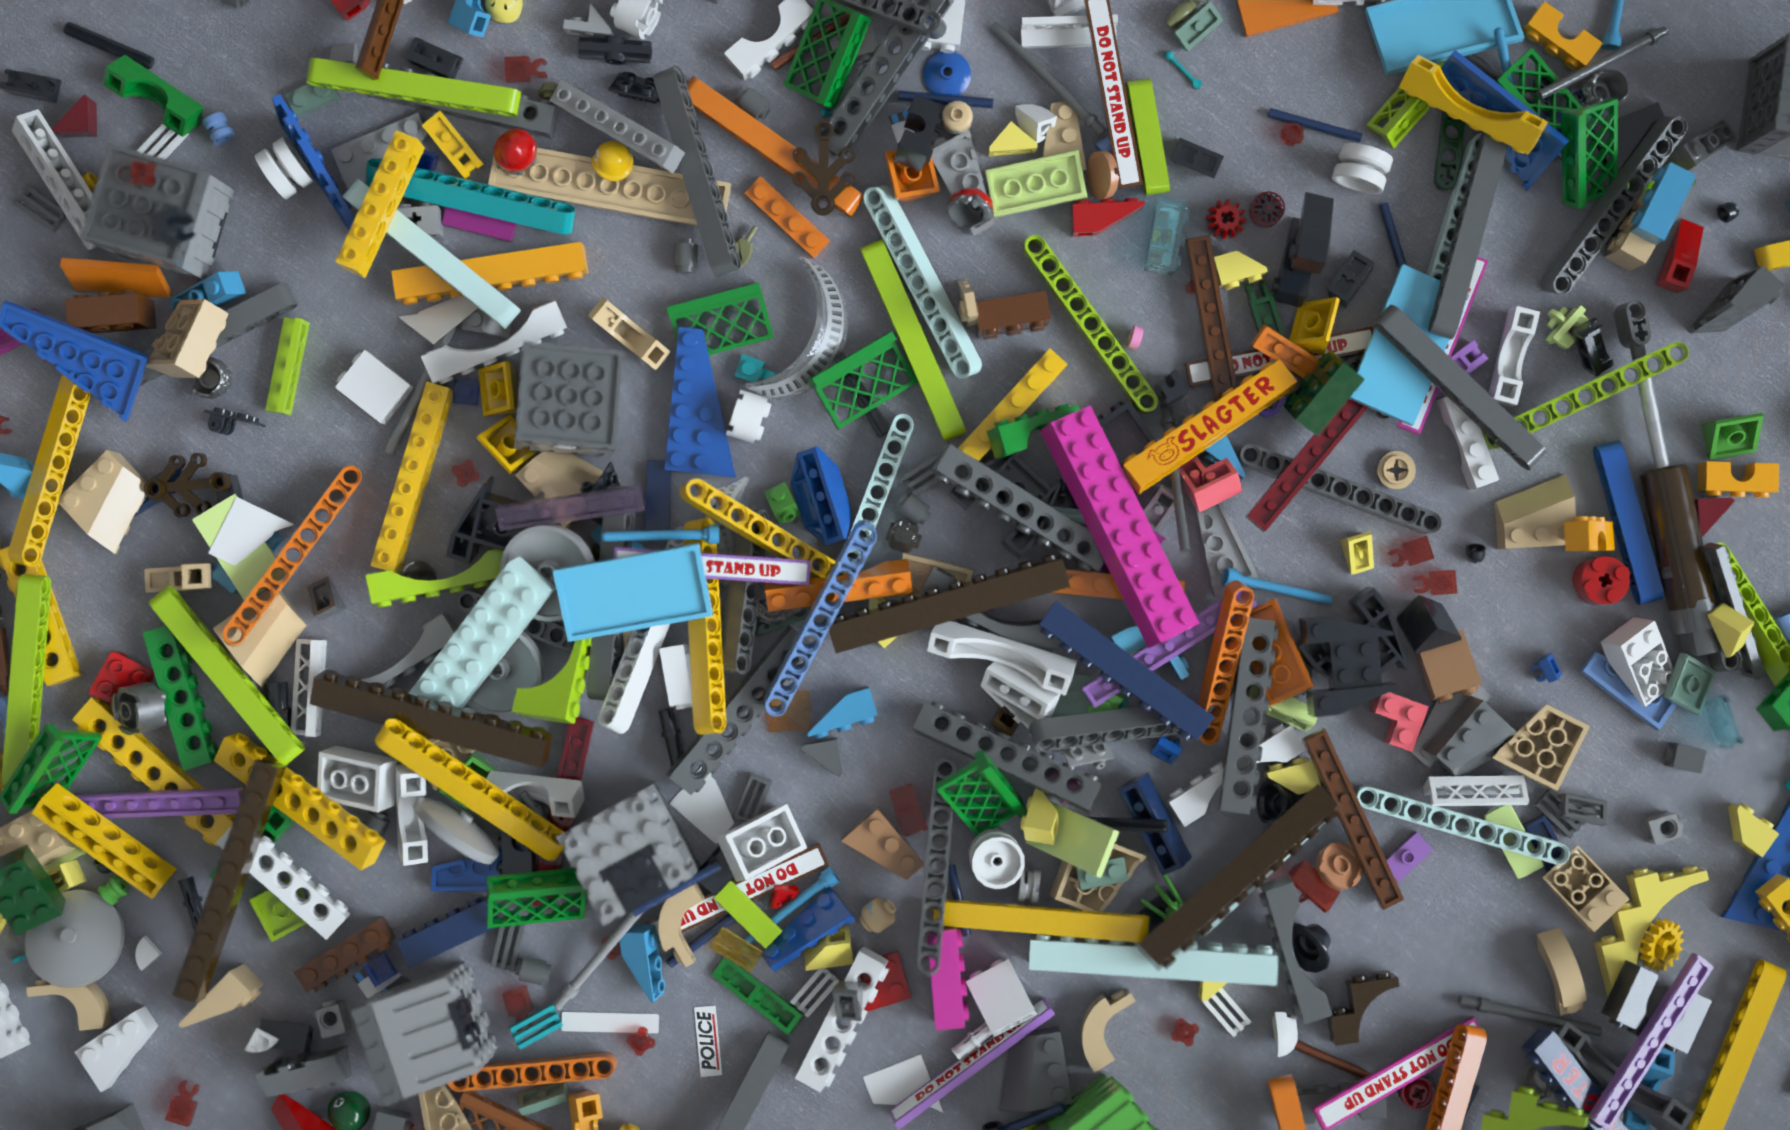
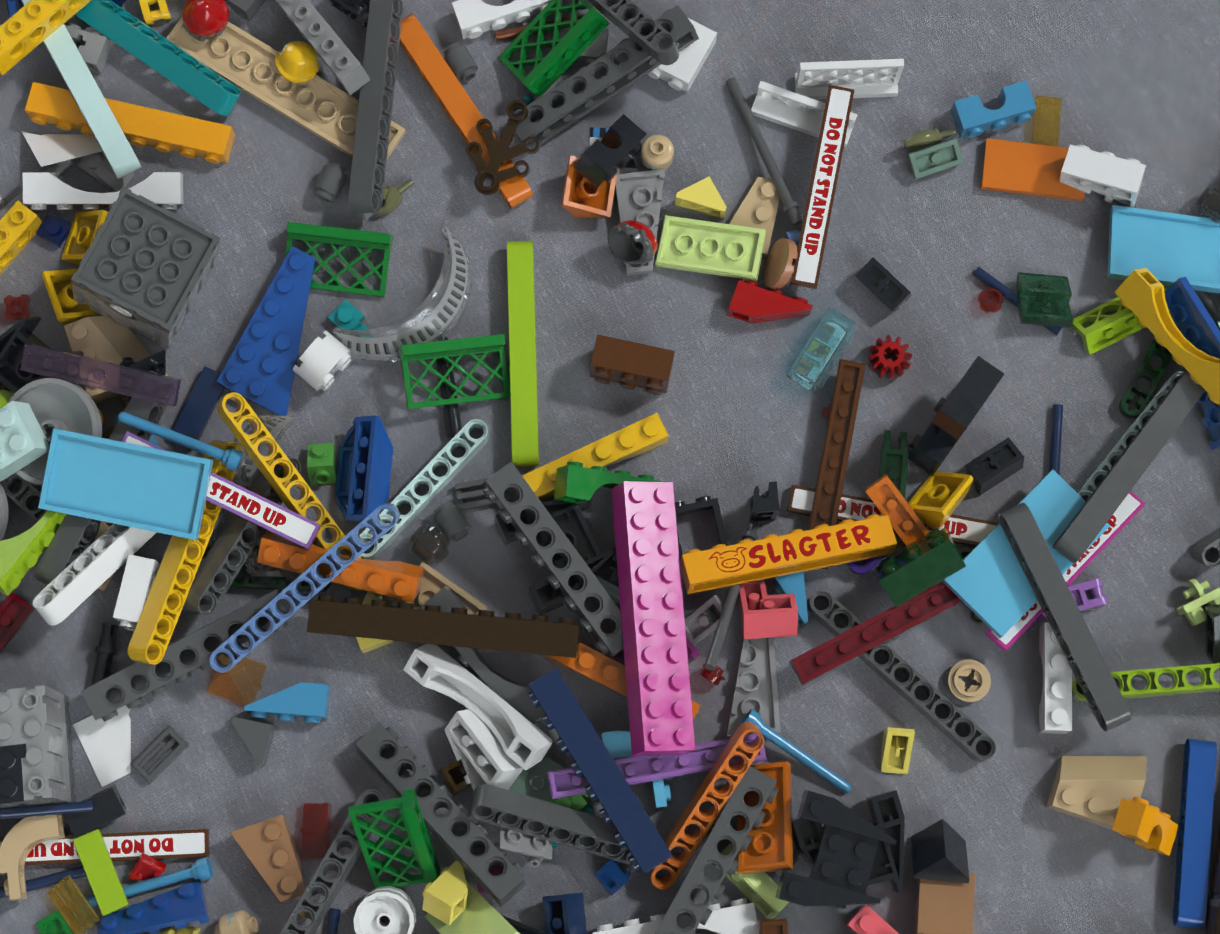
camera: 20 degrees right, 10 degrees down
(479, 224) = (141, 73): magenta tile -> none
(628, 333) = (239, 232): tan arch -> none
(761, 842) = (146, 800): white brick -> none
(787, 217) = (448, 185): orange plate -> none
(932, 287) = (556, 299): light aqua beam -> none
(945, 99) = (650, 130): dark blue bar -> none
(948, 85) = (665, 121): blue dish -> none
(967, 307) = (588, 337): tan wing -> none
(1034, 120) = (734, 186): white brick -> none
(1089, 312) = (709, 395): lime beam -> none
(1135, 337) = (750, 438): bright pink tile -> none
(1147, 136) = (842, 246): lime beam -> none
(1176, 551) = (713, 676): none -> clear red plate
(1196, 83) = (913, 214): teal hinge -> none
(1236, 268) = (880, 409): light yellow slope -> none
(1266, 209) = (935, 364): dark red wheel -> none
(1338, 116) = (1044, 300): none -> clear green slope
(1362, 168) = (1047, 359): white wheel -> none
(1414, 551) = (958, 774): clear red plate -> none
(1440, 582) = (970, 816): clear red plate -> none
(1475, 552) = (1020, 800): black hinge -> none
(1517, 334) = (1134, 608): white arch -> none
(1614, 577) = (1158, 877): red brick -> none

